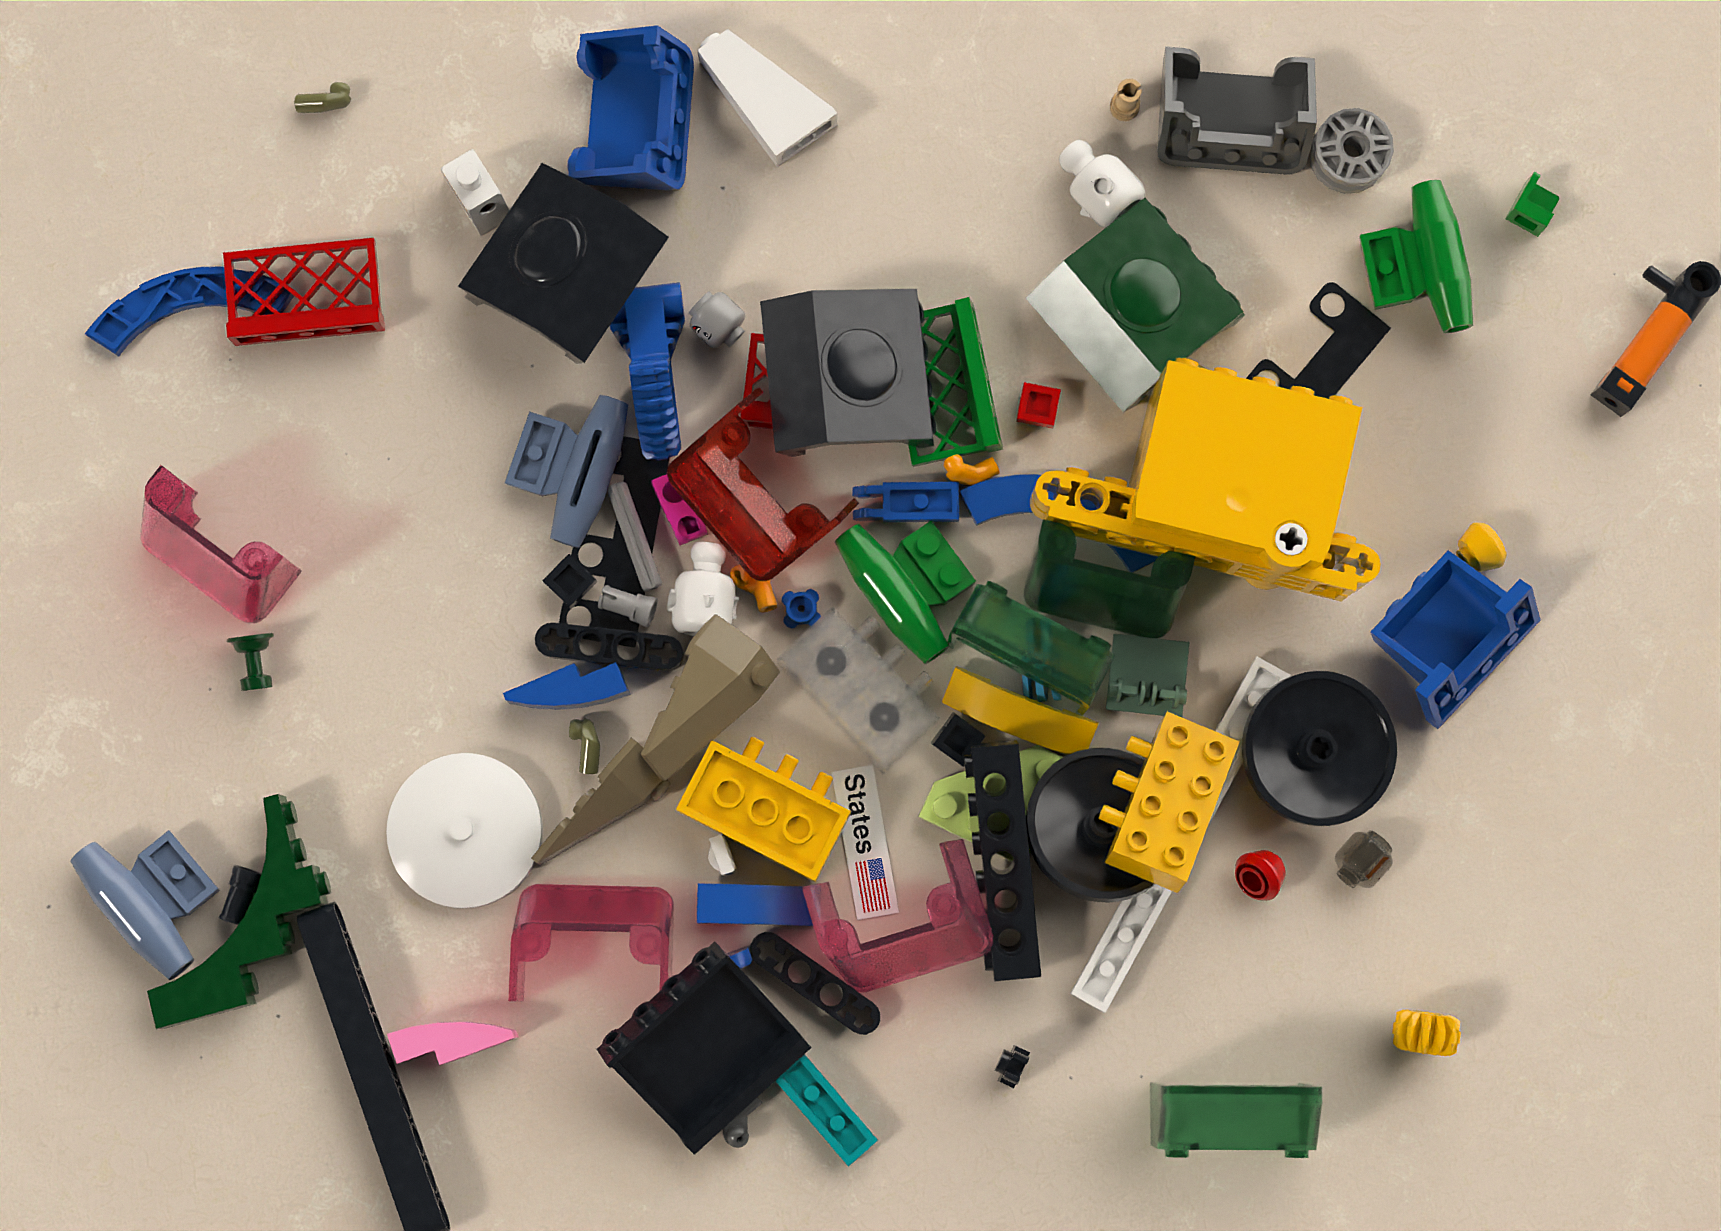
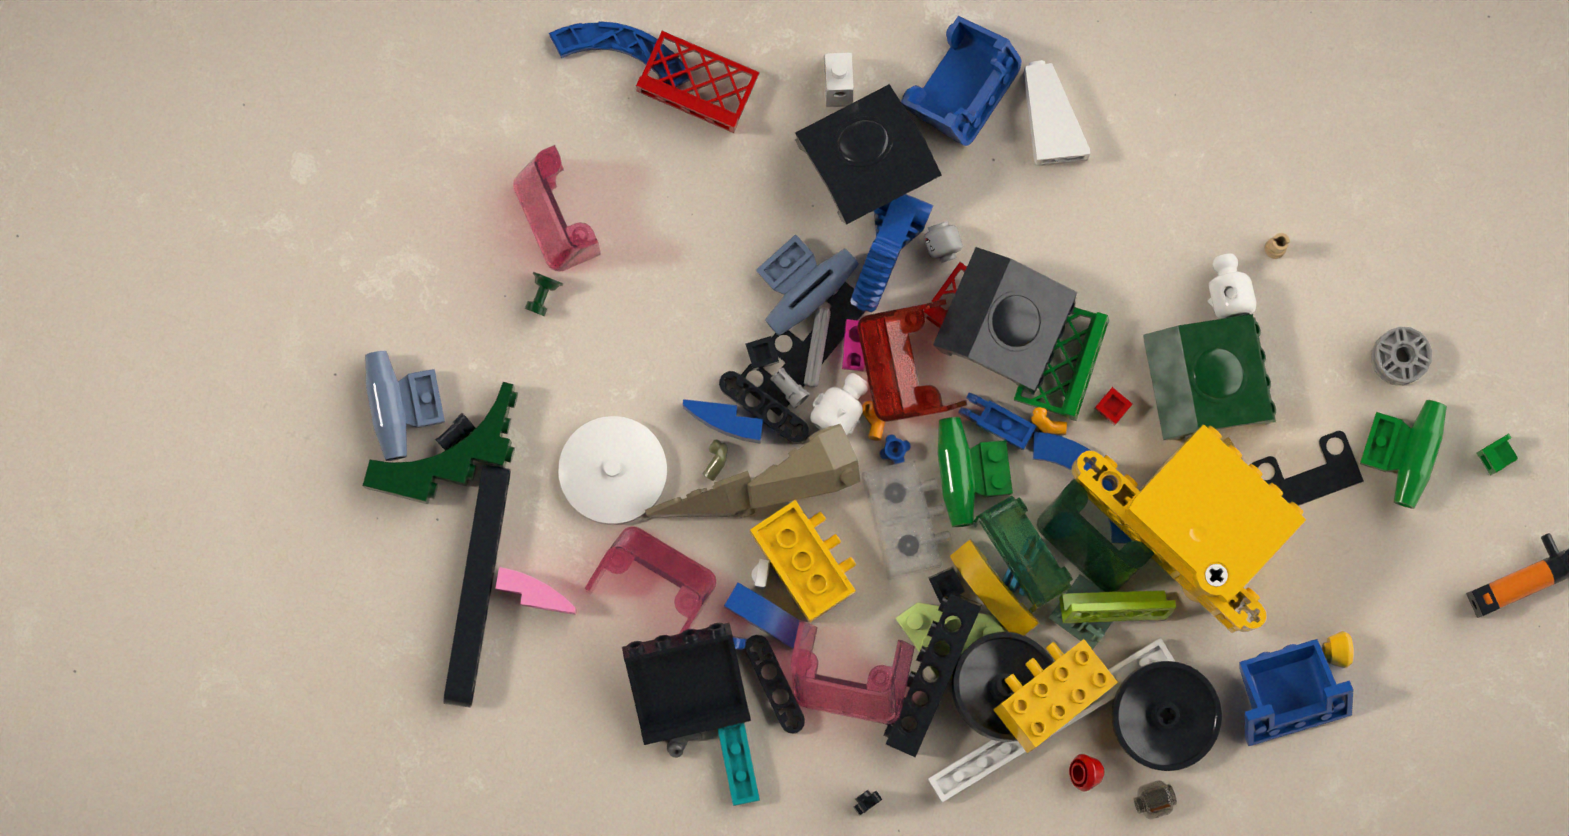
camera: 25 degrees right, 0 degrees up
(865, 843) = (853, 616): white sticker -> none
(1181, 649) = (1115, 606): none -> lime fence
(1236, 117) = (1341, 294): dark grey windscreen -> none

